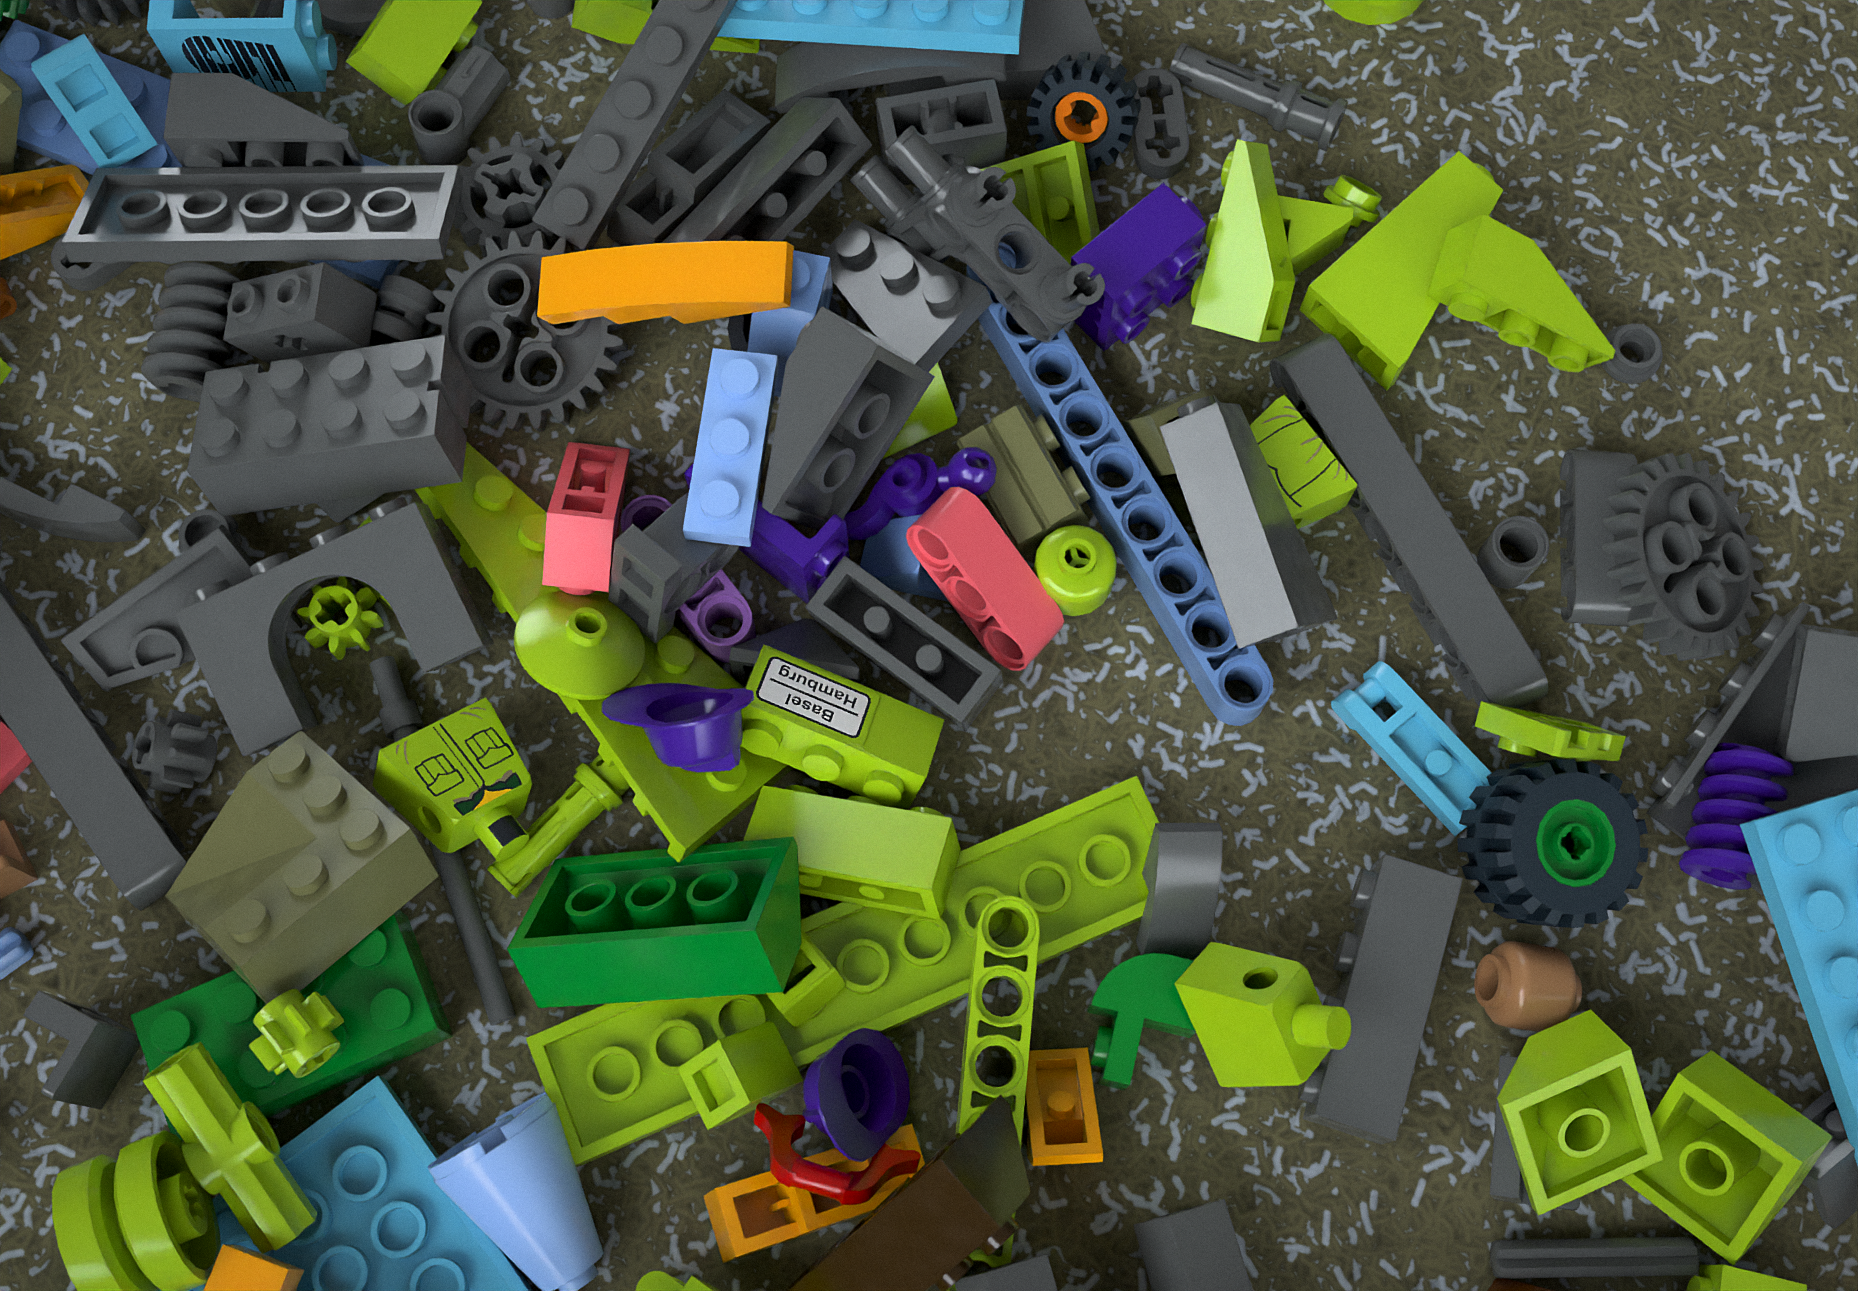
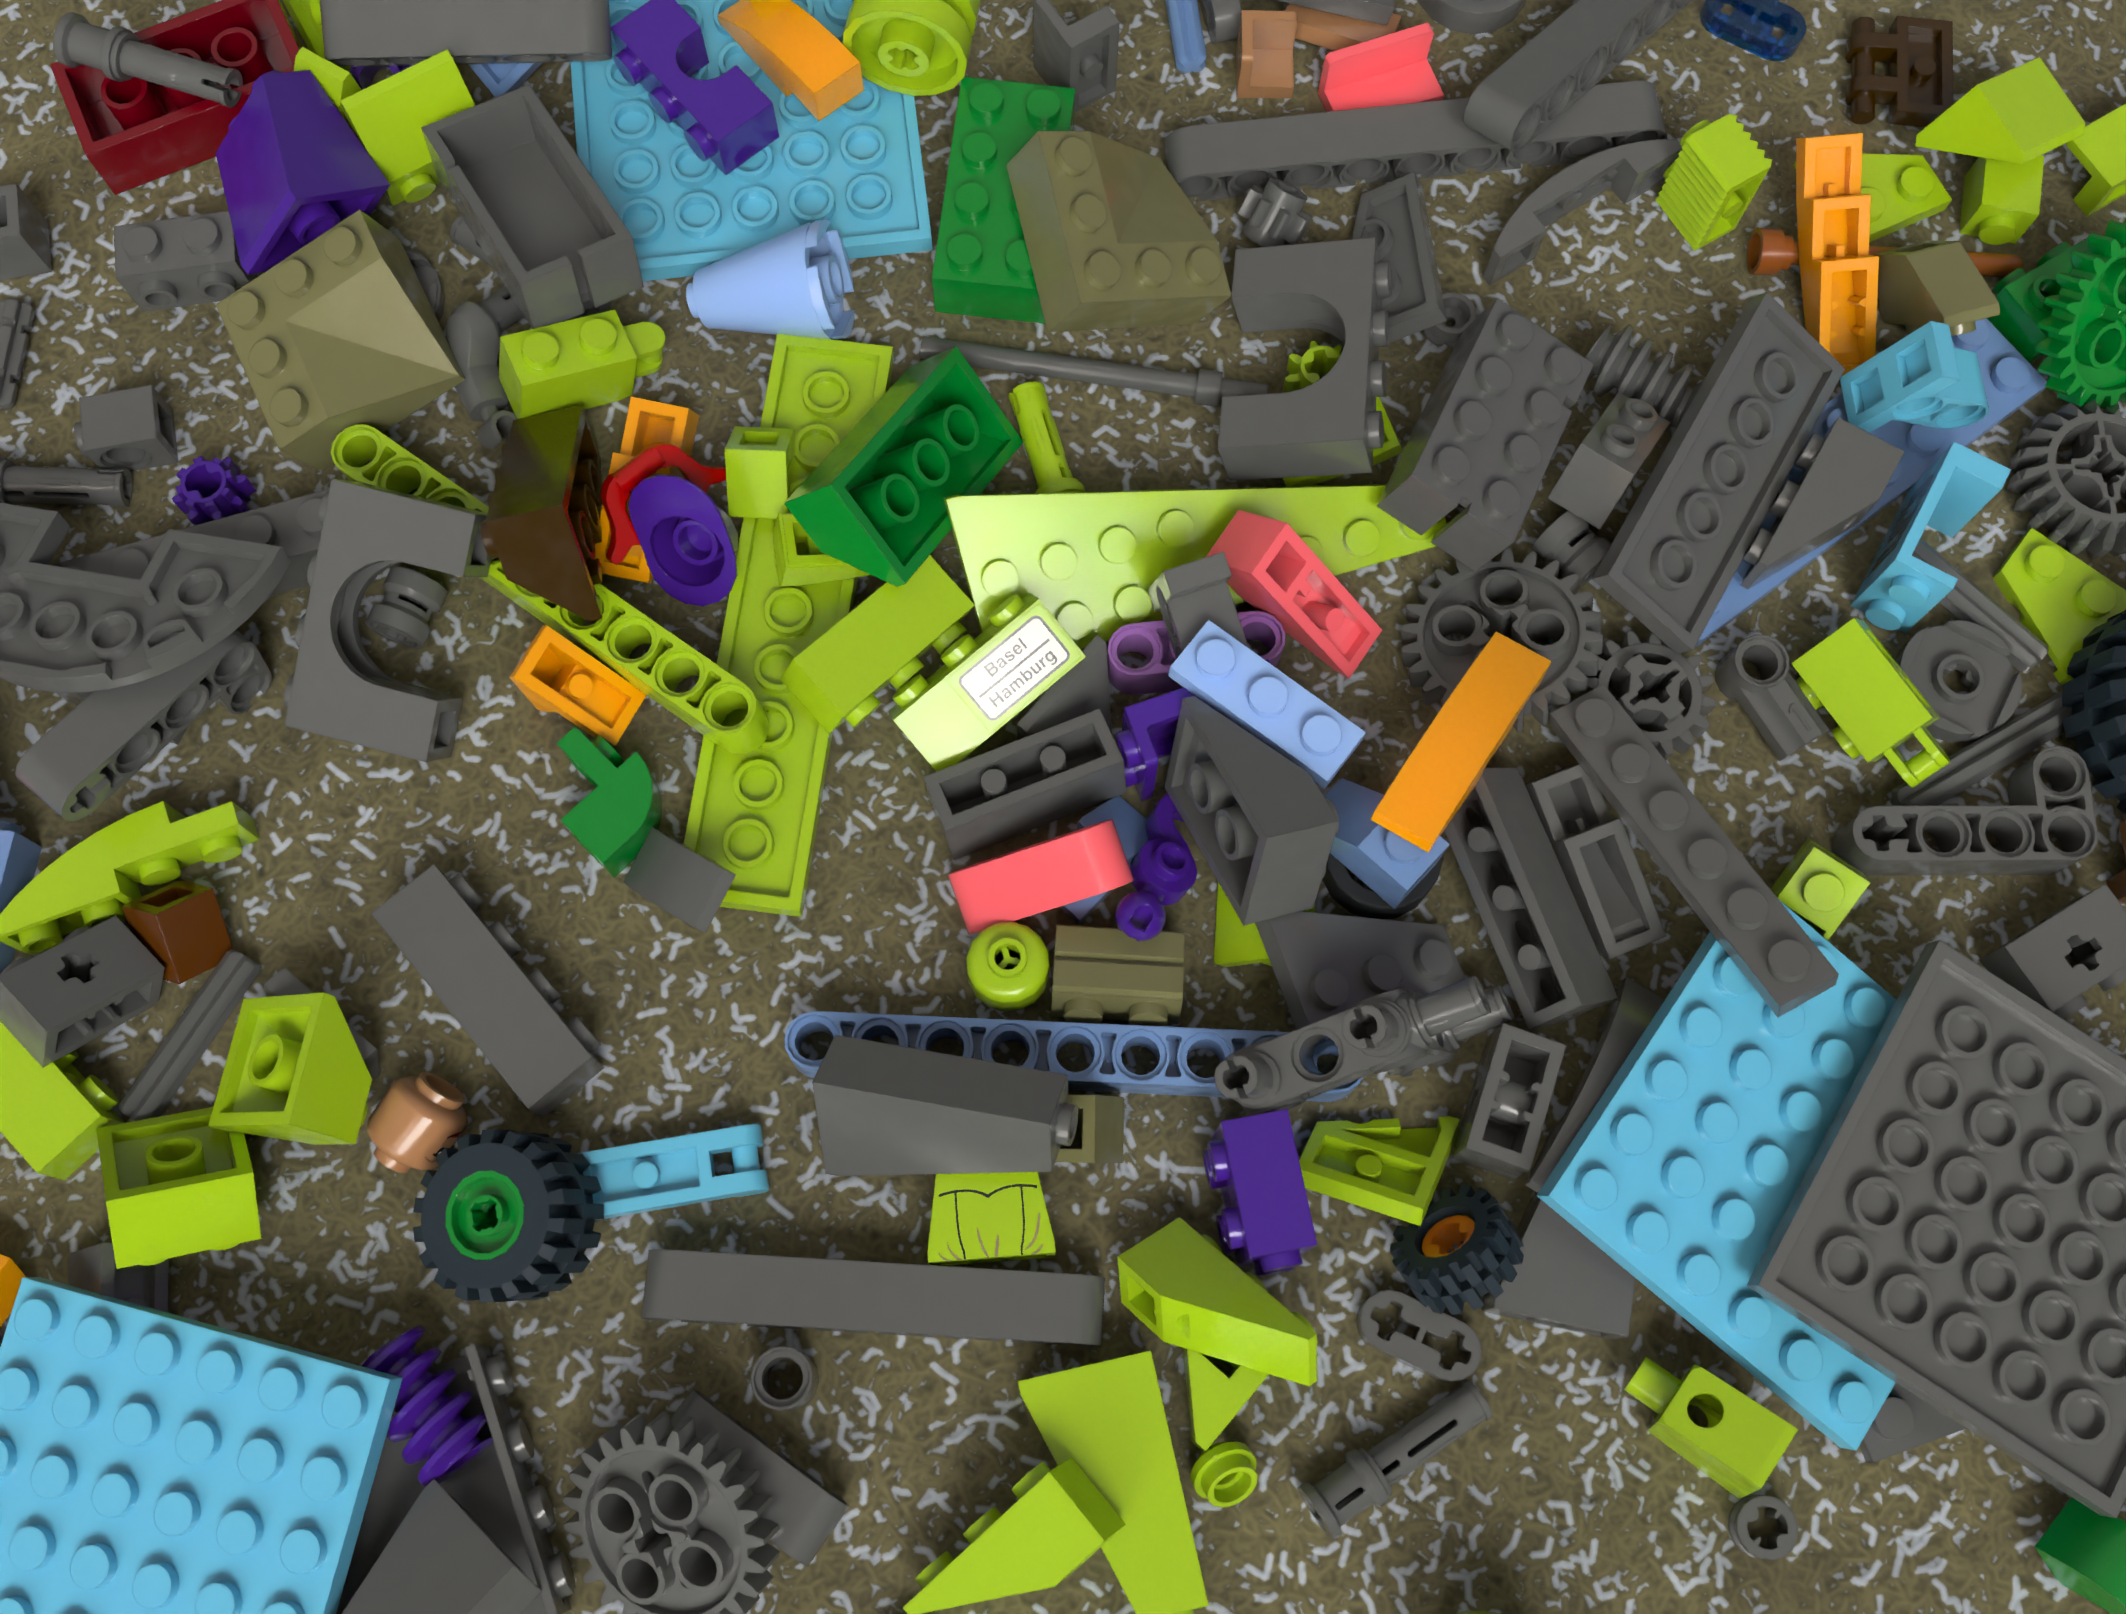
camera: 120 degrees right, 0 degrees up
(230, 1148) = (928, 100): lime piece -> none
(296, 1033) = (977, 167): lime gear -> none
(459, 782) = (1118, 390): lime torso -> none
(579, 645) = (1149, 499): lime dish -> none
(685, 722) = (1055, 546): dark purple piece -> none
(1259, 1017) = (504, 872): lime torso -> none
(1559, 737) = (592, 1277): lime wing -> none

